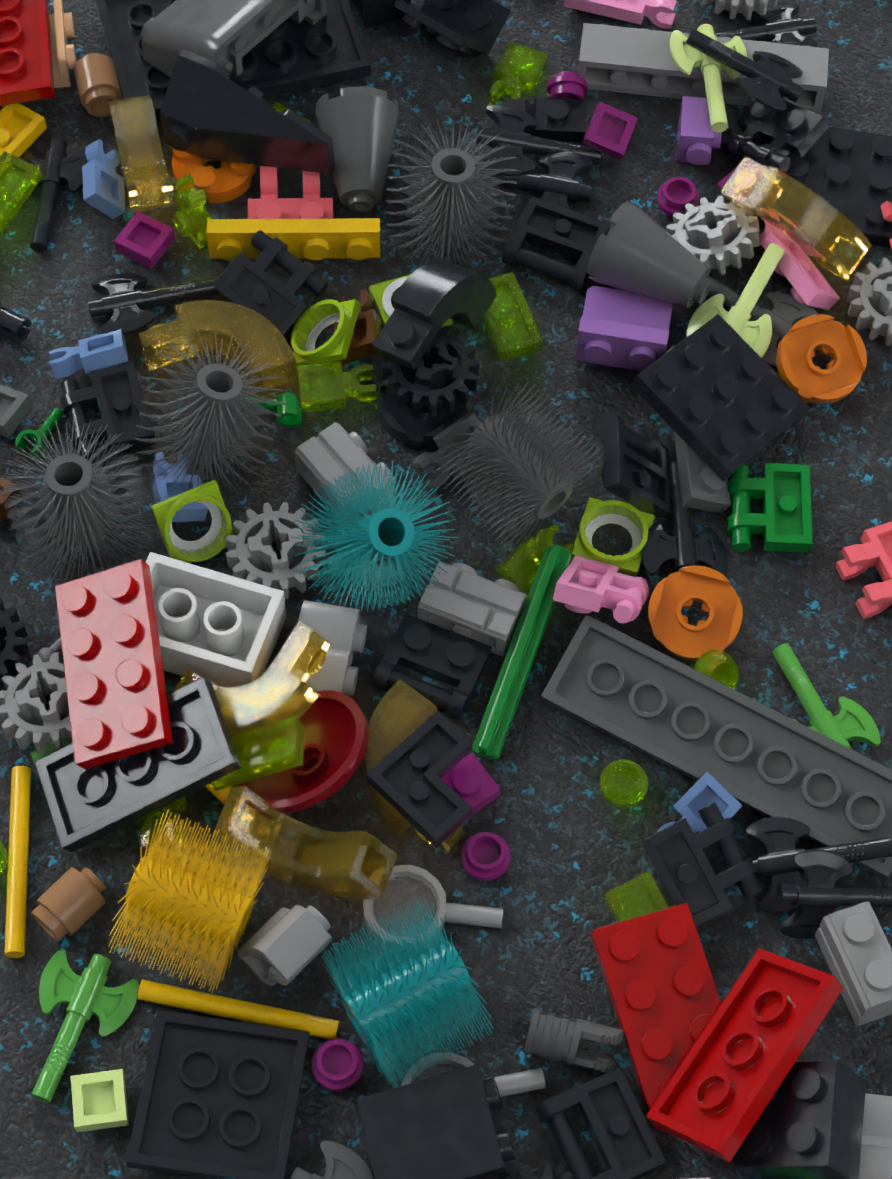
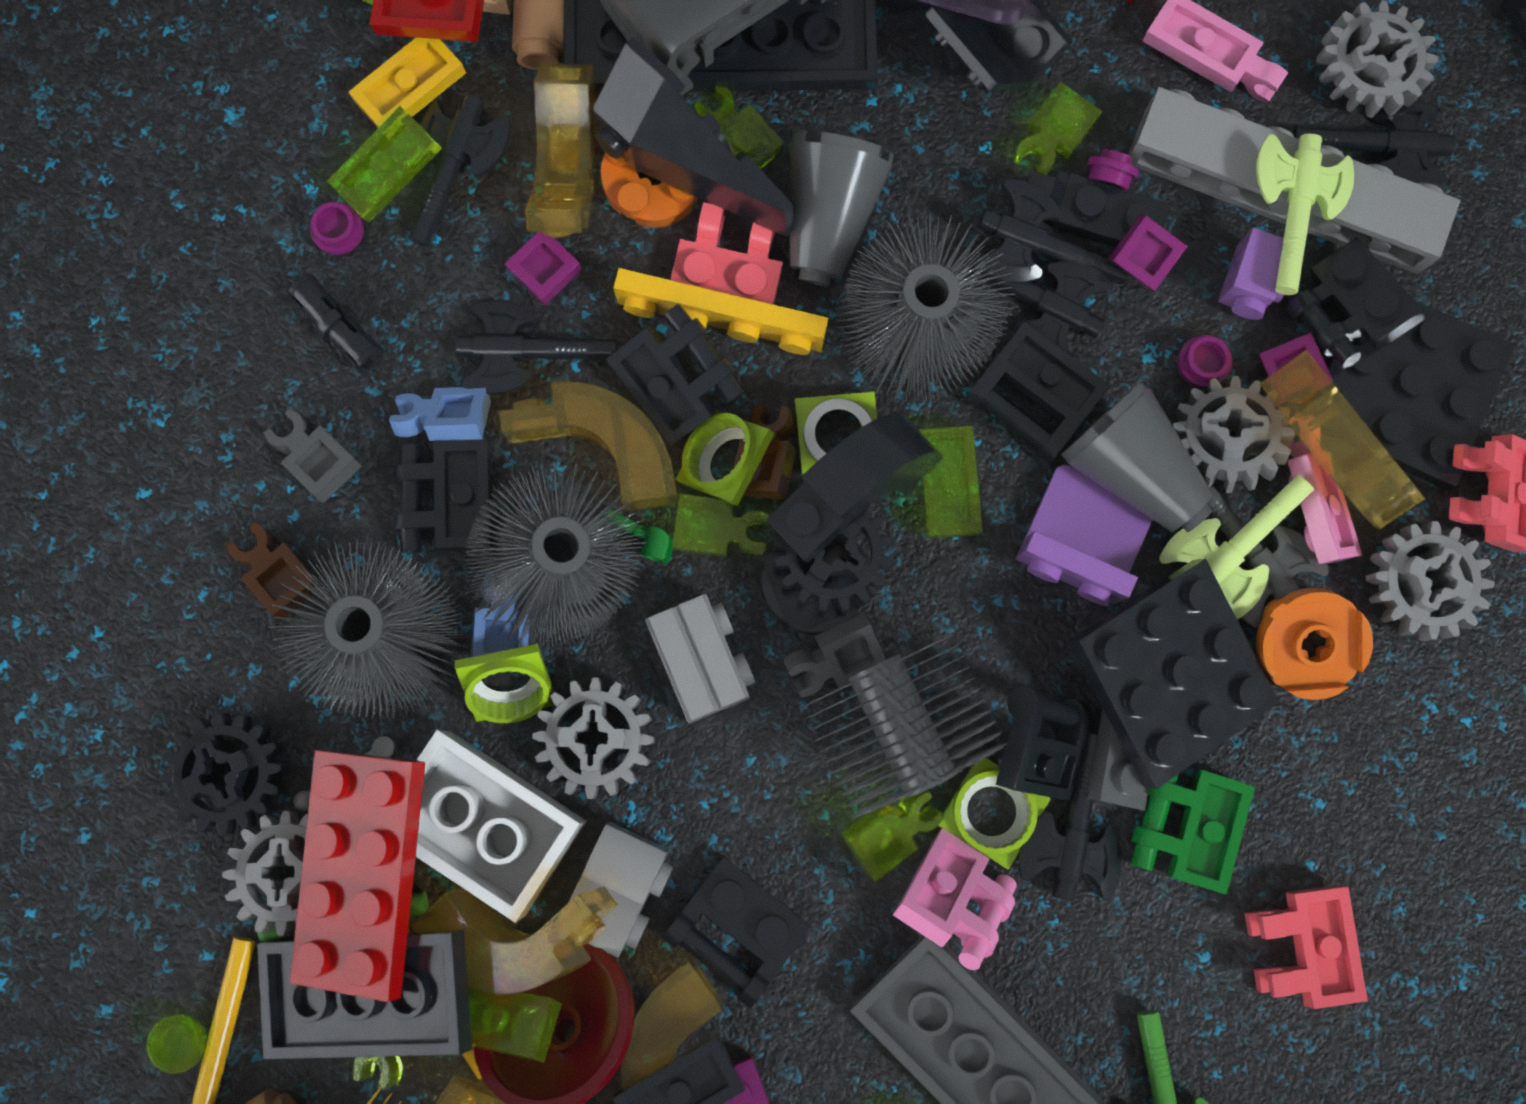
camera: 15 degrees right, 20 degrees up
(49, 423) = (361, 506): green hand -> none
(101, 183) = (509, 169): medium blue plate -> none
(190, 211) = (604, 249): clear neon green plate -> none
(374, 537) = (700, 786): teal piece -> none
(473, 605) = (802, 874): light grey brick -> none
(521, 654) = (844, 947): green axle -> none
(680, 590) = (1067, 982): orange plate -> none
(719, 667) = (1063, 1031): clear neon green plate -> none
(766, 77) = (1369, 230): black piece -> none

